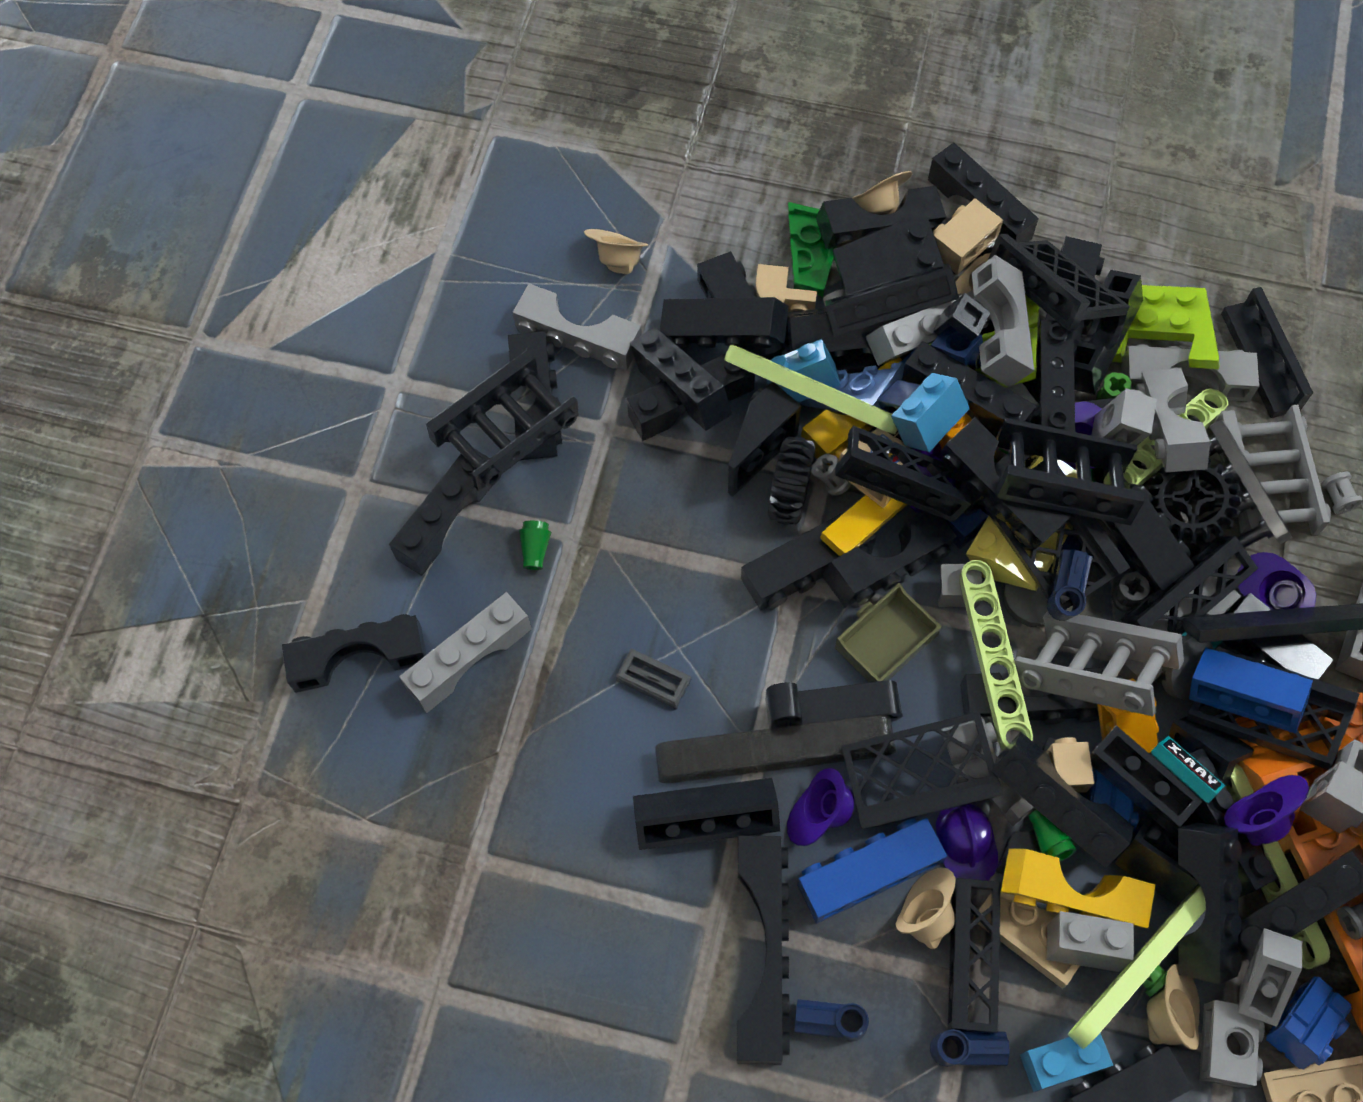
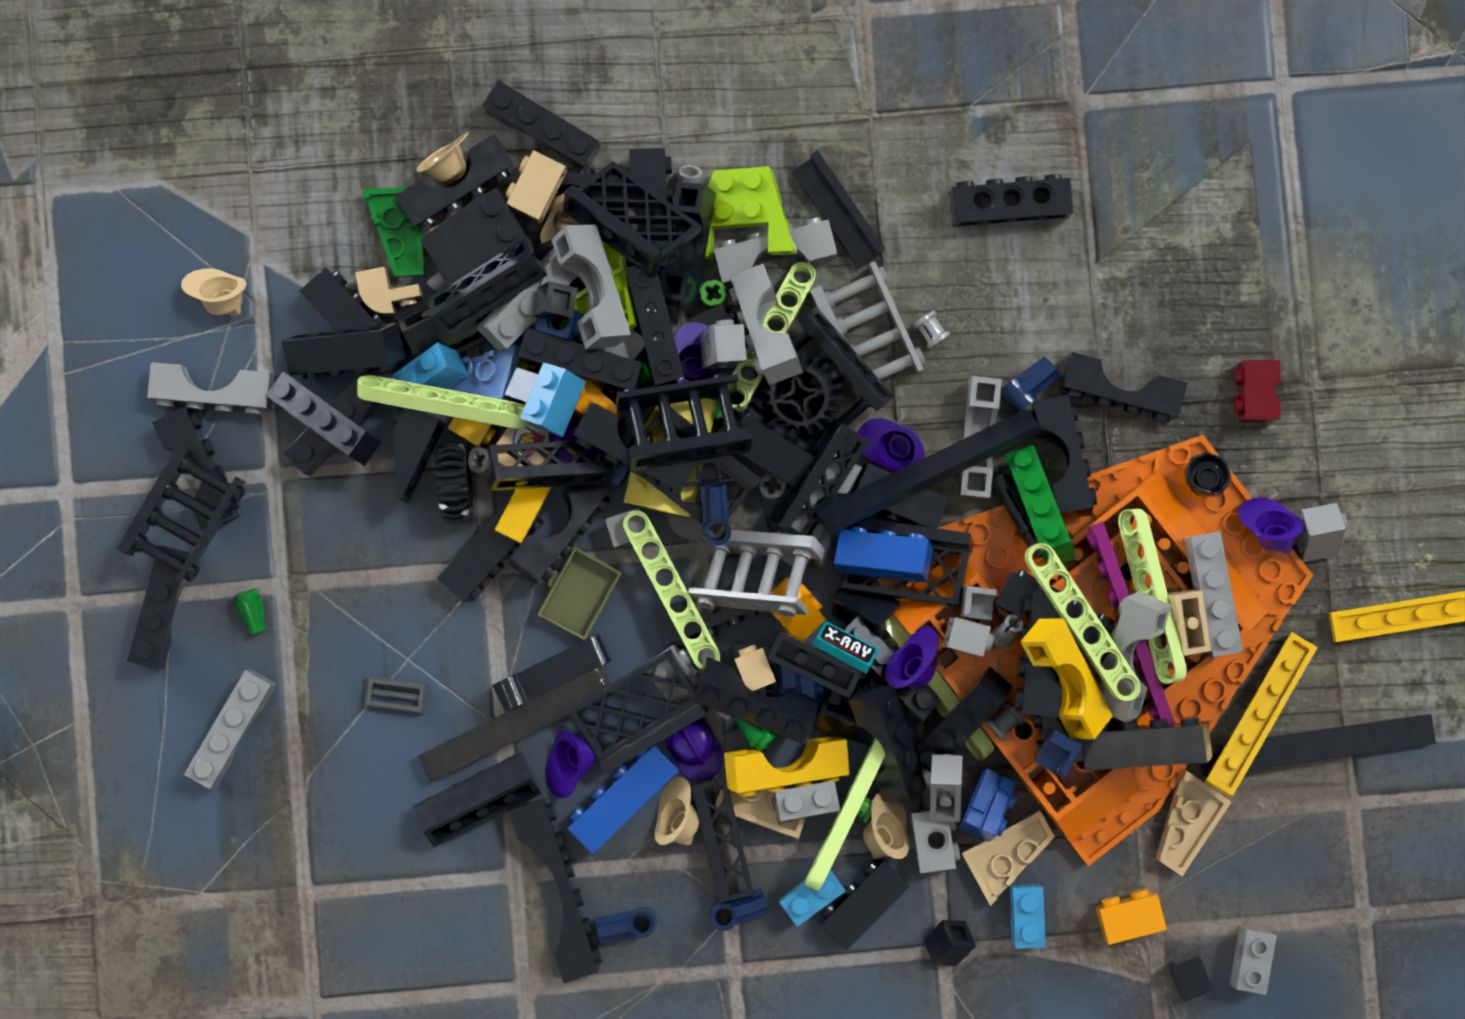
camera: 25 degrees left, 20 degrees up
(312, 660) = (104, 780): black arch -> none

